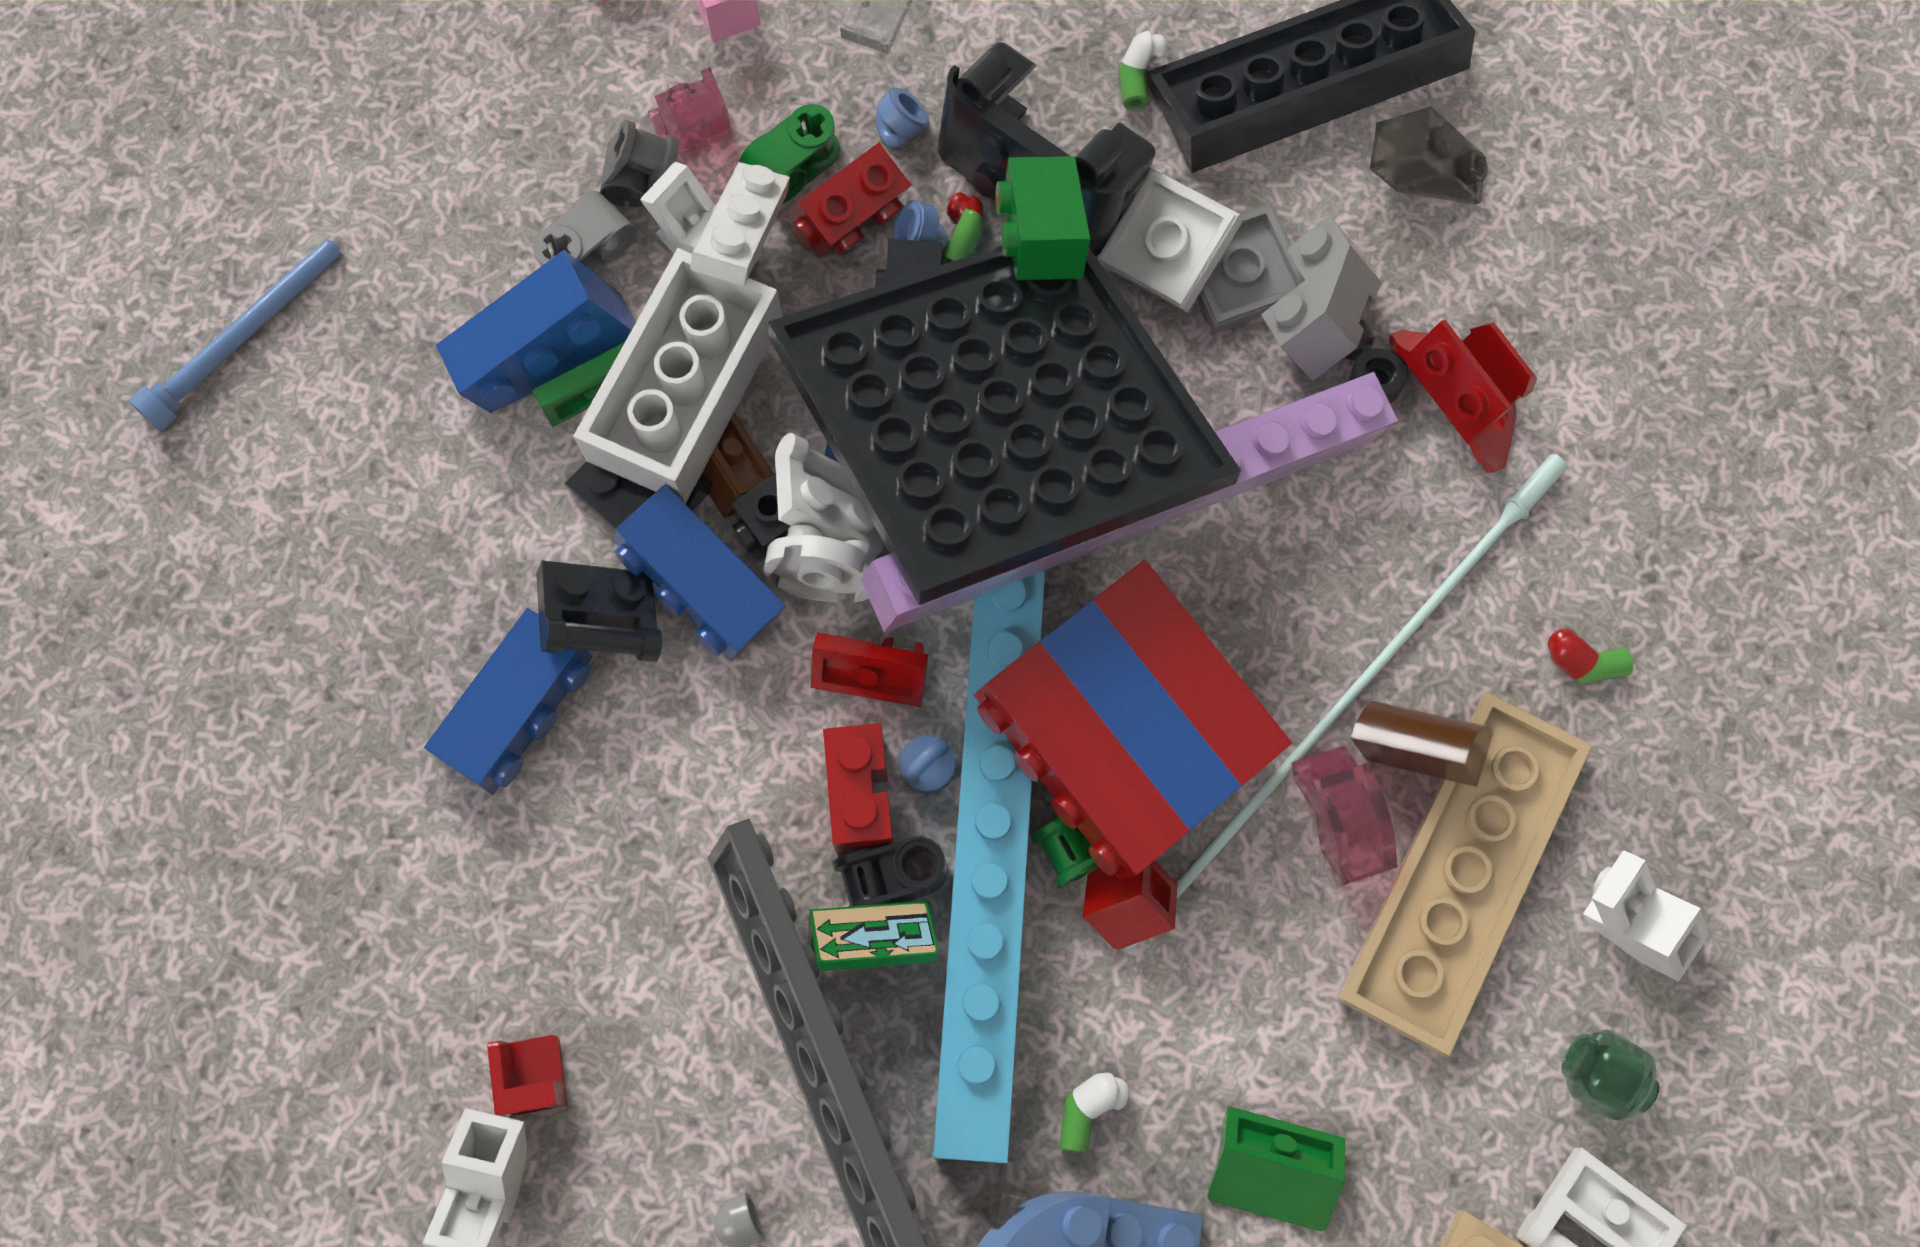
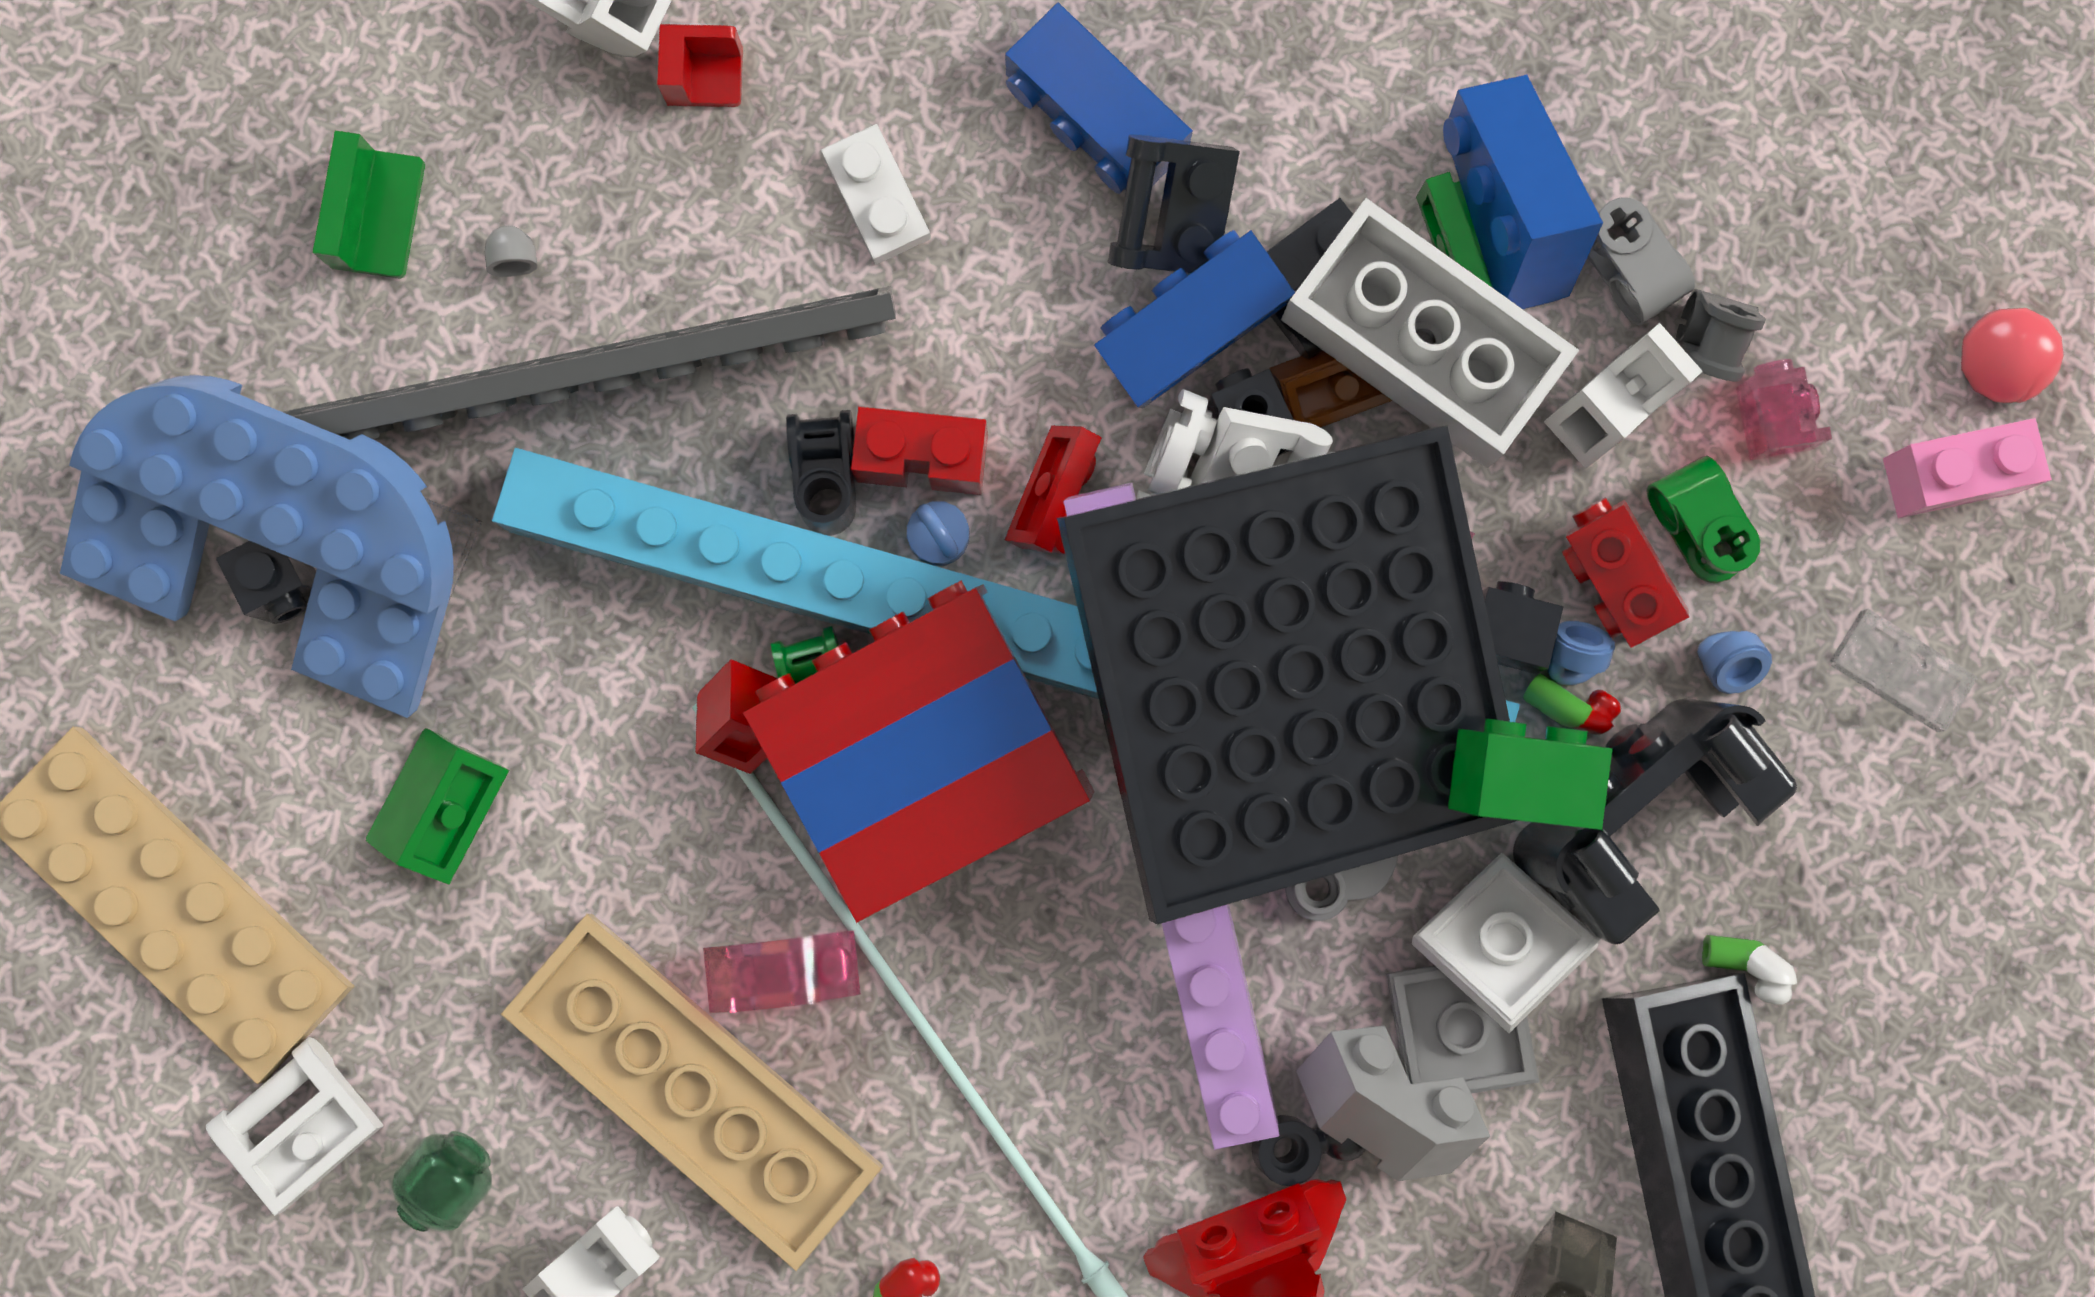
camera: 100 degrees right, 10 degrees up
(624, 886) = (876, 194): none -> white plate
(740, 223) = (1603, 431): white plate -> none
(872, 936) = (751, 430): panel -> none
(1087, 1103) = (544, 624): arm -> none
(1422, 742) = (839, 1077): reddish brown brick -> none

